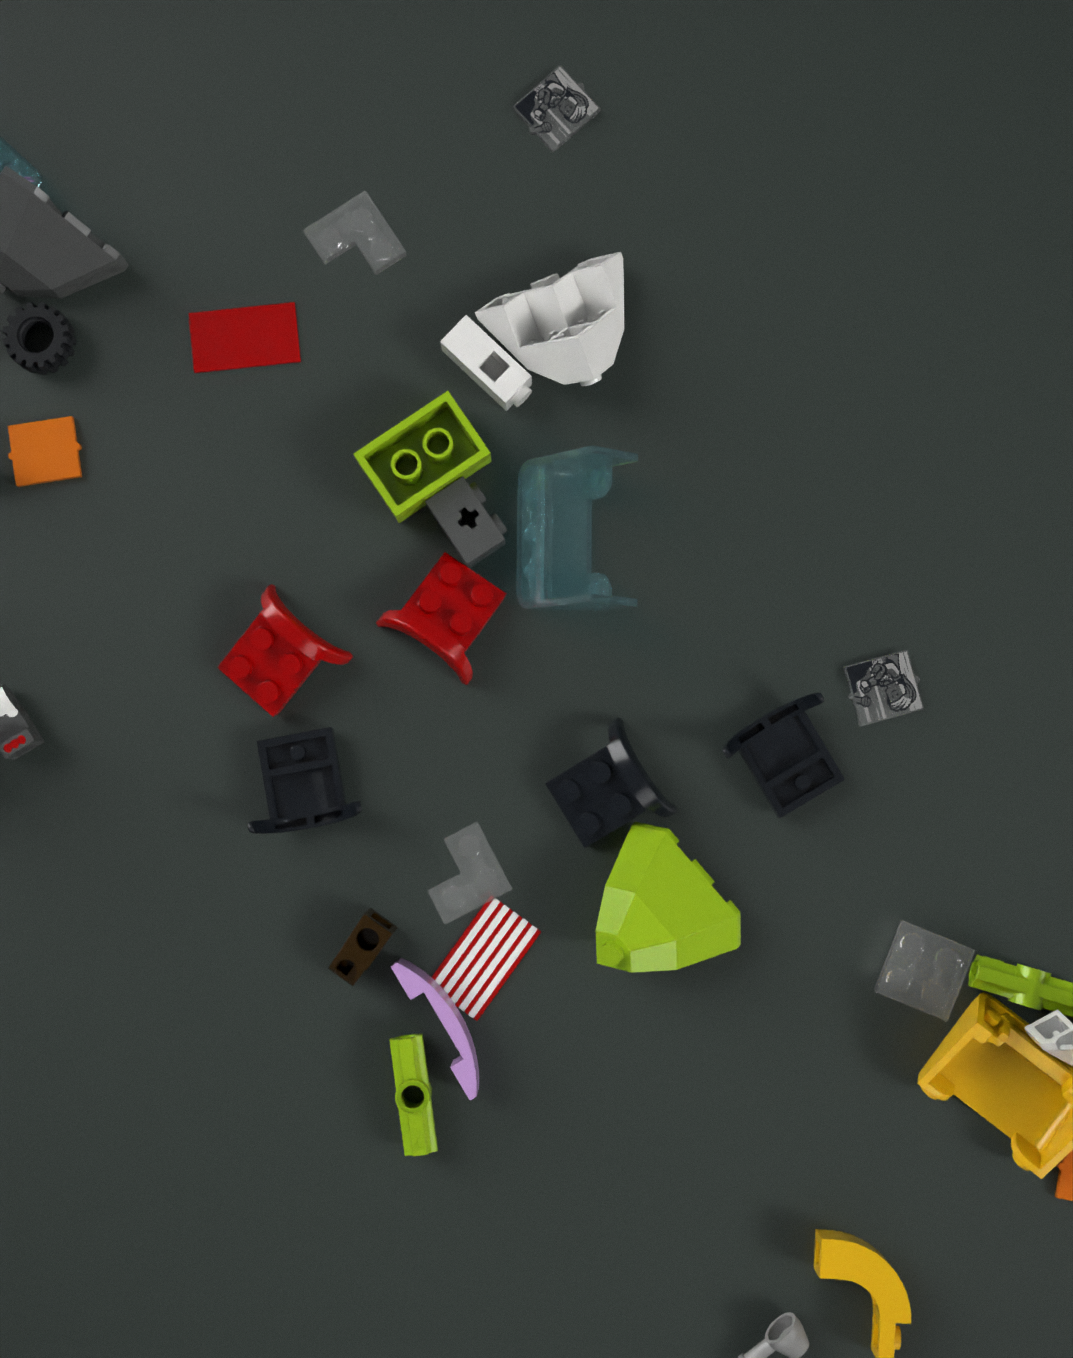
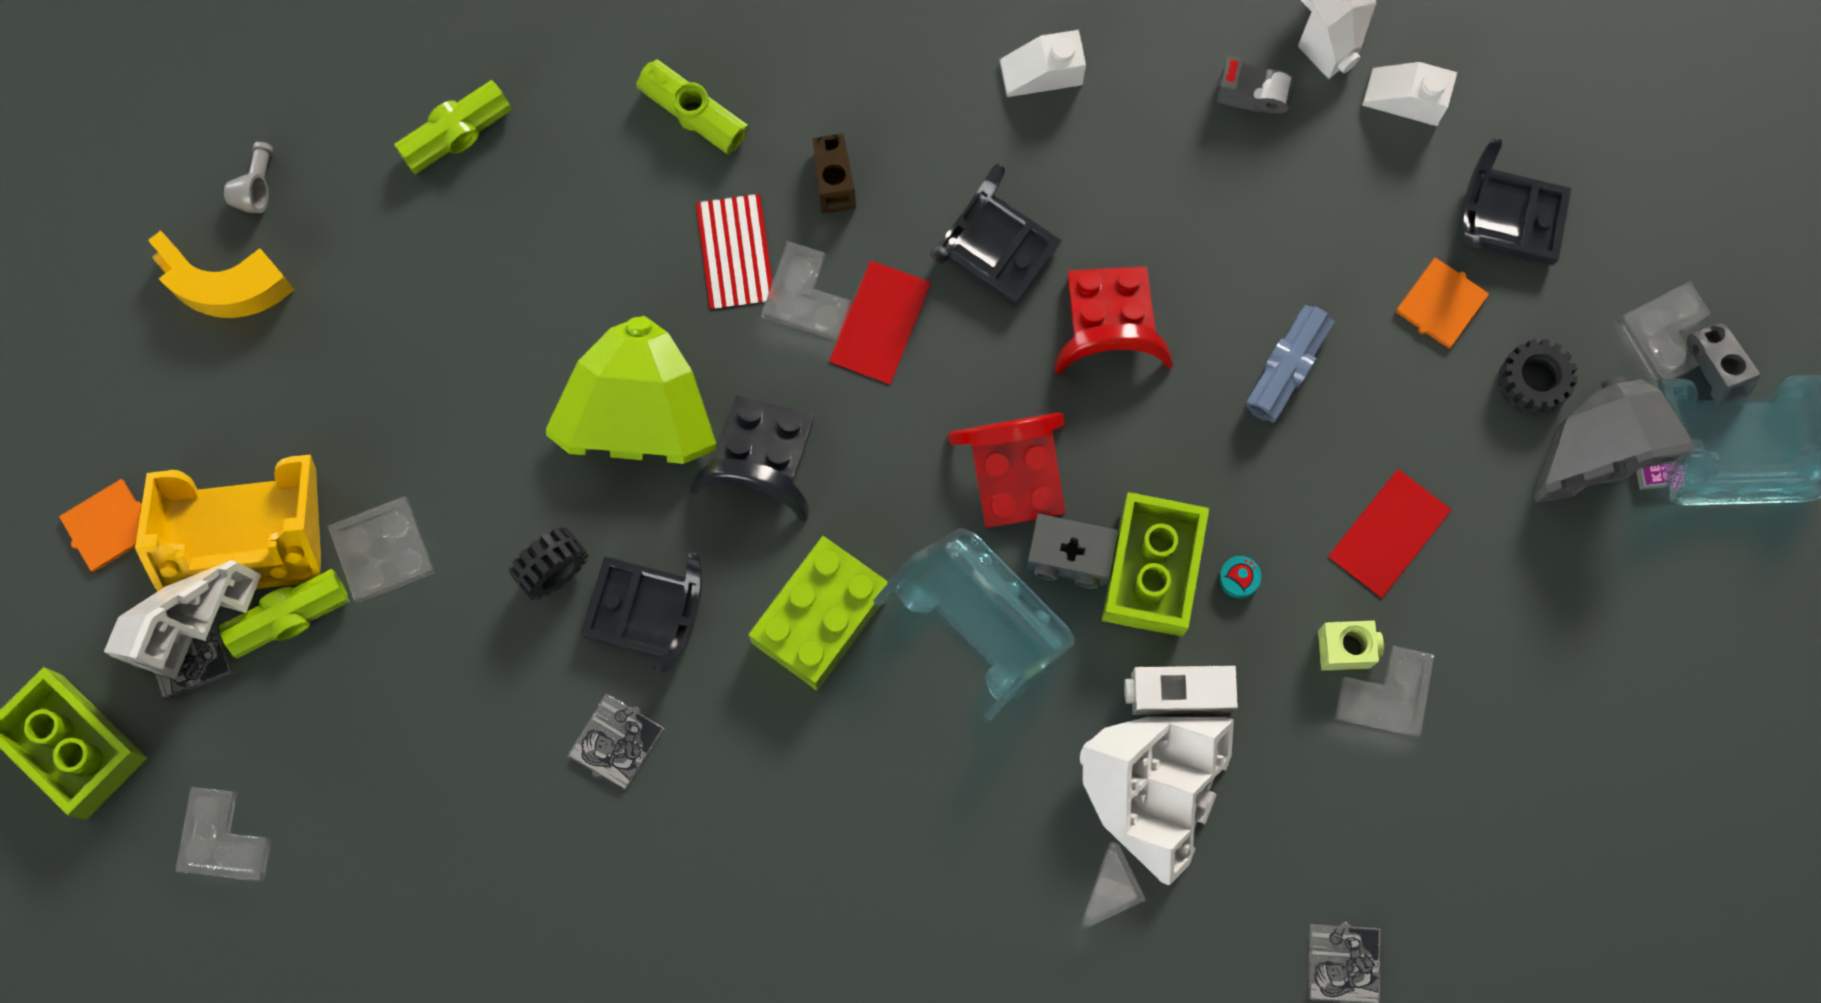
camera: 135 degrees right, 10 degrees down
(136, 882) = (1044, 64): none -> white slope
(192, 506) = (1289, 363): none -> sand blue piece
(355, 303) = (1333, 654): none -> yellowish green brick
(373, 401) = (1239, 577): none -> teal tile
(417, 981) = (768, 184): lavender slope -> none
(434, 808) = (880, 322): none -> red sticker
(596, 1246) = (453, 126): none -> lime piece
(659, 284) = (1113, 888): none -> clear slope
(673, 639) = (818, 613): none -> lime brick
(823, 847) = (548, 563): none -> black tyre

